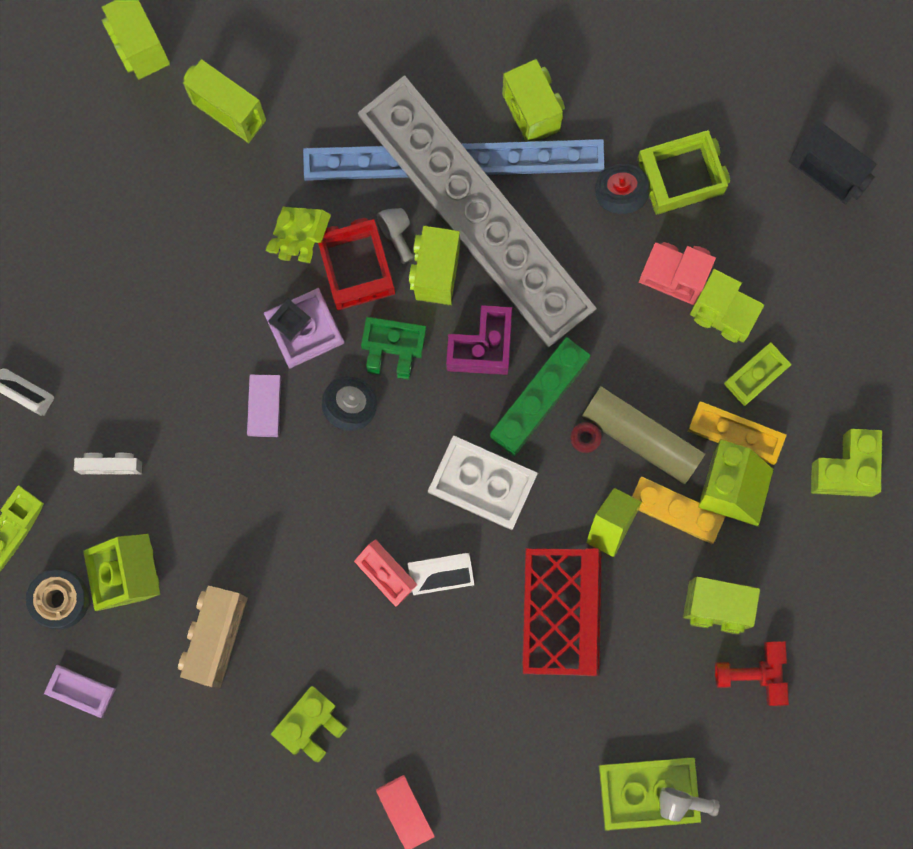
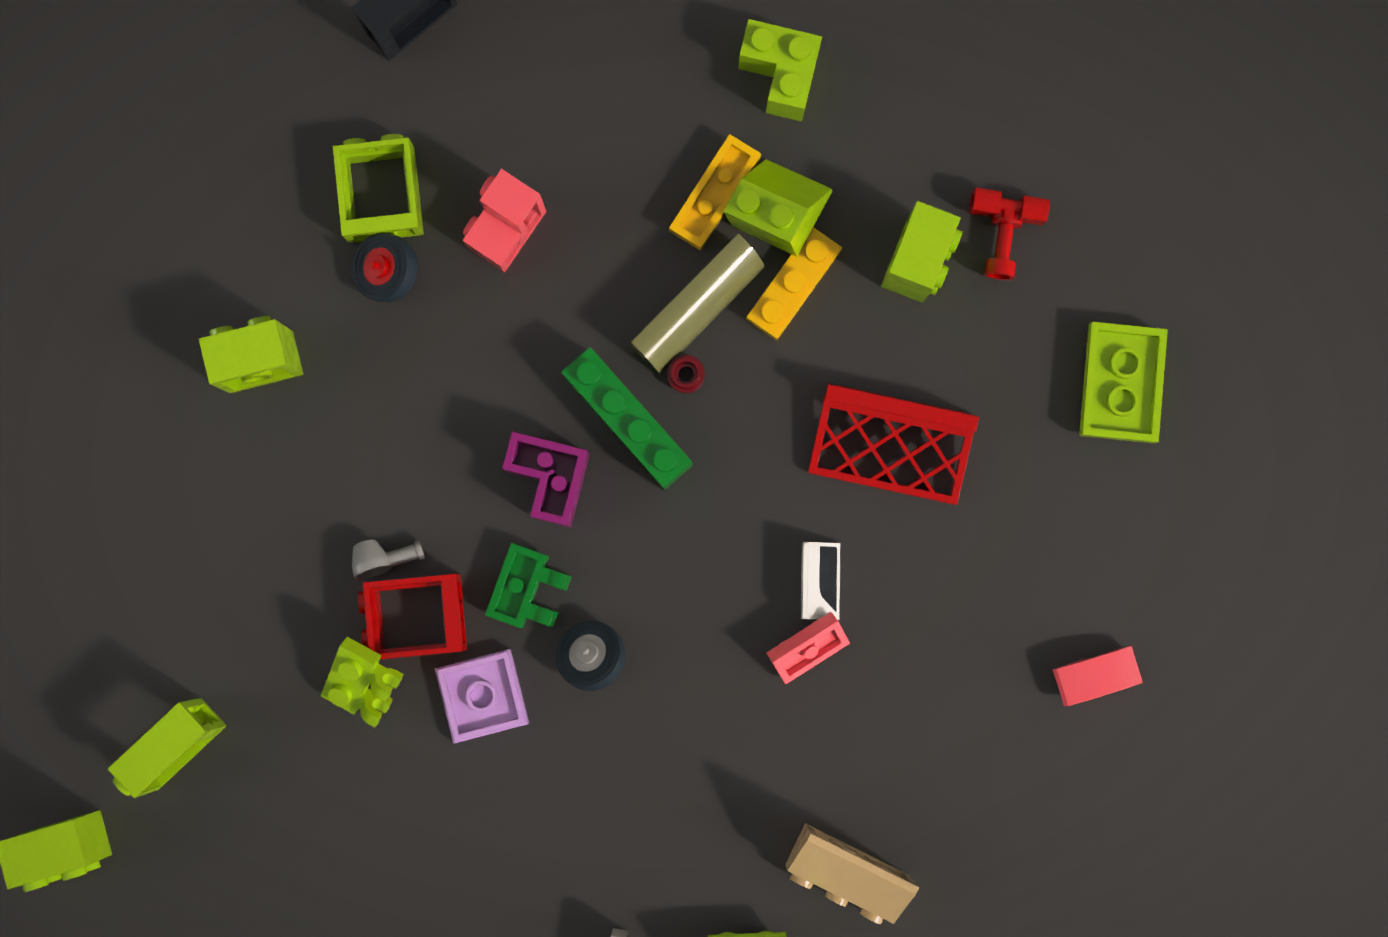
camera: 85 degrees left, 5 degrees up
(264, 405) = (571, 762): lavender tile -> none
(290, 320) = (472, 711): black plate -> none
(304, 720) = (968, 780): lime plate -> none
(436, 265) = (437, 514): lime brick -> none
(478, 210) = (374, 454): light grey plate -> none
(482, 482) = (719, 509): white plate -> none
(492, 158) = (303, 471): medium blue plate -> none
(613, 522) = (796, 360): lime slope -> none
(676, 803) = (1143, 352): light grey bar -> none
(726, 308) = (562, 171): lime brick -> none
(757, 374) = (648, 152): lime plate -> none

